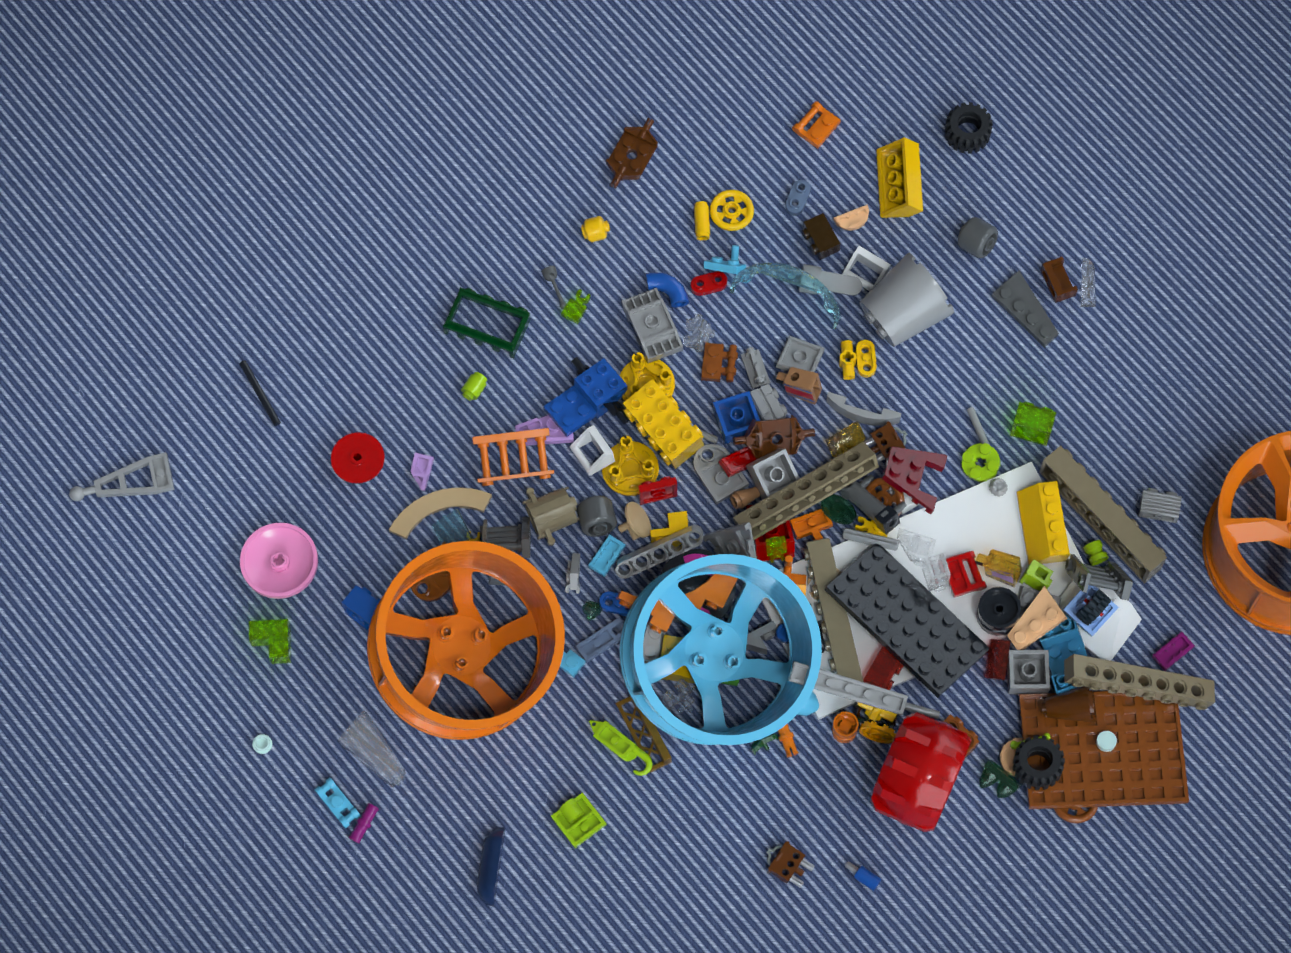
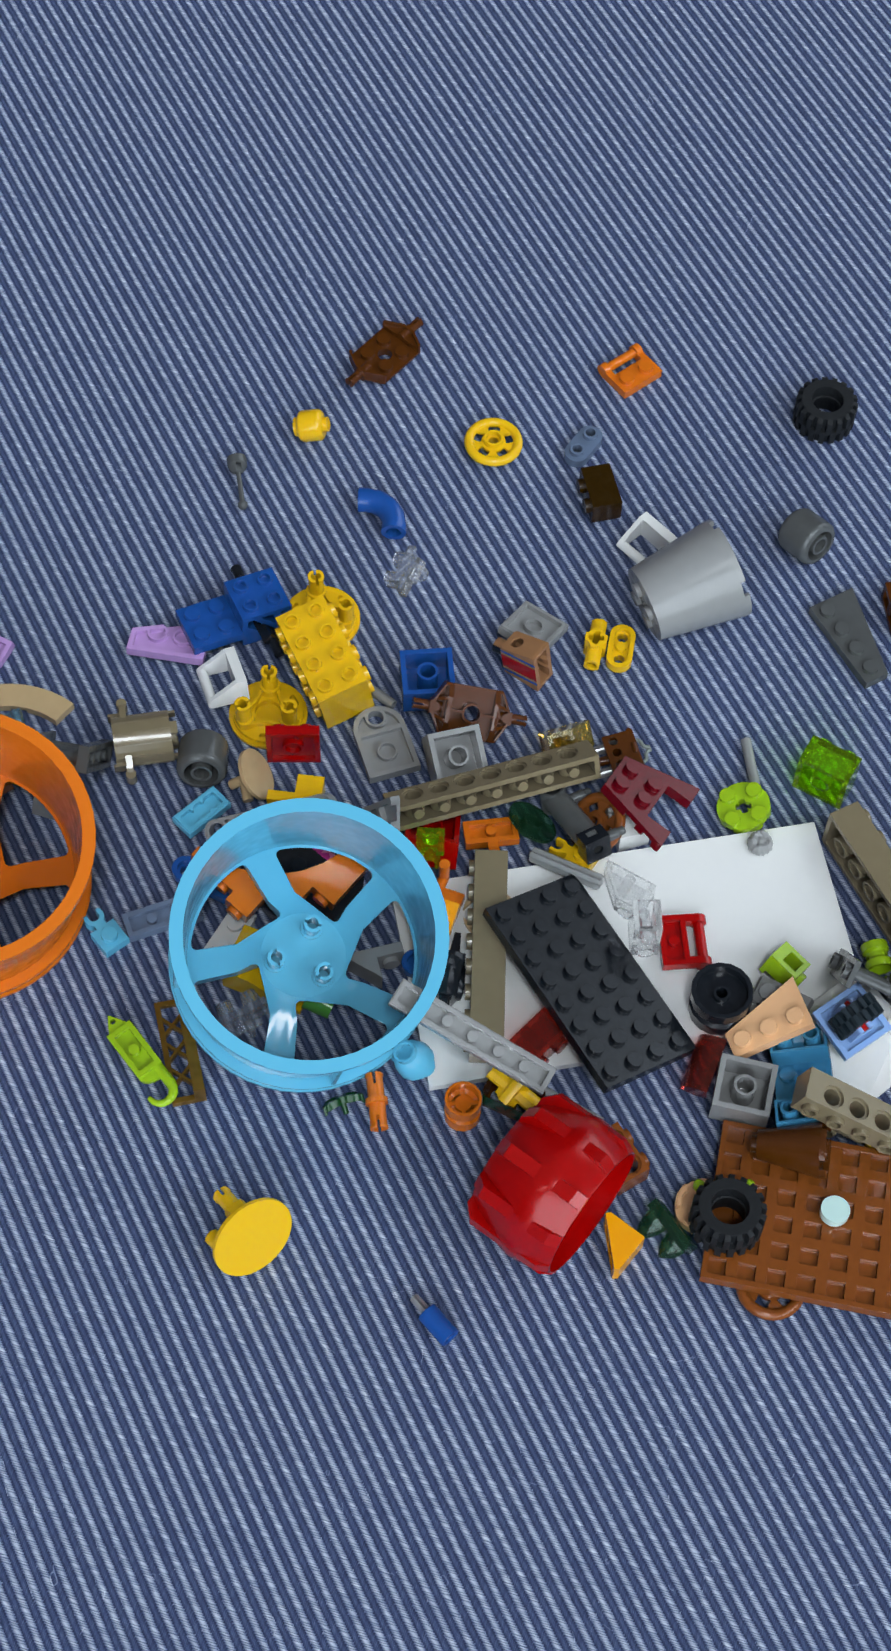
camera: 10 degrees right, 10 degrees down
(474, 386) = (95, 571): lime brick -> none
(480, 337) = (123, 516): dark green window -> none
(521, 439) = (106, 637): orange fence -> none
(573, 572) = (147, 821): light grey plate -> none
(575, 309) = (257, 512): clear neon green plate -> none
(578, 820) = (49, 1145): lime plate -> none
(591, 609) = (158, 875): plate -> none
(652, 325) = (349, 549): light grey plate -> none
(702, 221) = (451, 445): yellow piece -> none
(709, 283) = (439, 519): red plate -> none
(712, 362) = (416, 611): dark orange plate -> none
(730, 266) = (473, 499): medium azure plate -> none
(732, 848) = (250, 1233): none -> yellow piece
(736, 461) = (409, 734): red tile -> none
(743, 497) = (405, 778): medium nougat cone -> none
(755, 368) = (470, 628): light grey hinge -> none
(767, 403) = (473, 668): light grey brick -> none
(780, 862) = (327, 1266): reddish brown piece -> none
(794, 276) = (547, 517): clear light blue windscreen -> none
(834, 282) = (579, 541): light grey piece -> none
(838, 403) = (598, 716): light grey slope -> none
(853, 219) = (647, 484): light nougat plate -> none
(877, 733) = (501, 1117): light orange wheel -> none
(899, 179) = (721, 450): yellow slope -> none
(971, 794) = (622, 1243): none -> light orange slope
(1001, 566) = (739, 942): clear yellow torso -> none
(1043, 523) = (811, 900): yellow slope -> none

